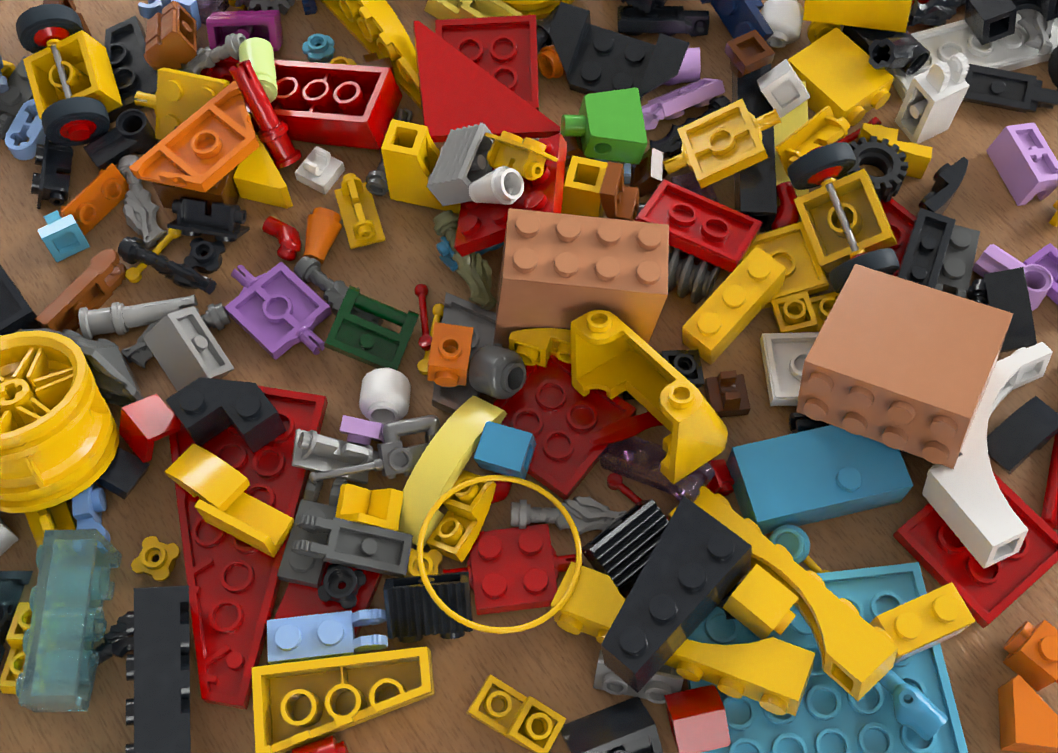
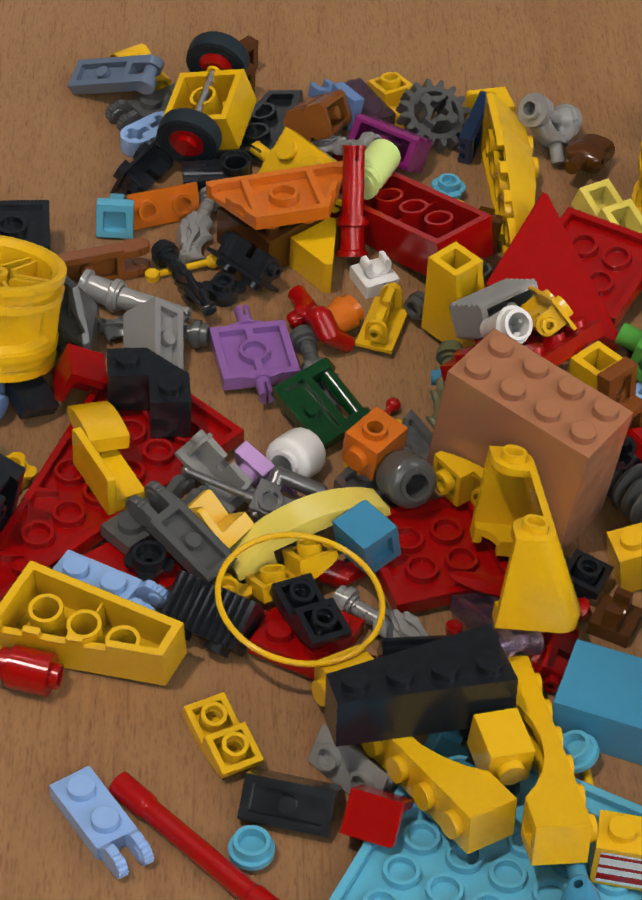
camera: 30 degrees right, 20 degrees down
(323, 251) = (327, 330): none -> red arm
(510, 556) = (308, 613): none -> black slope

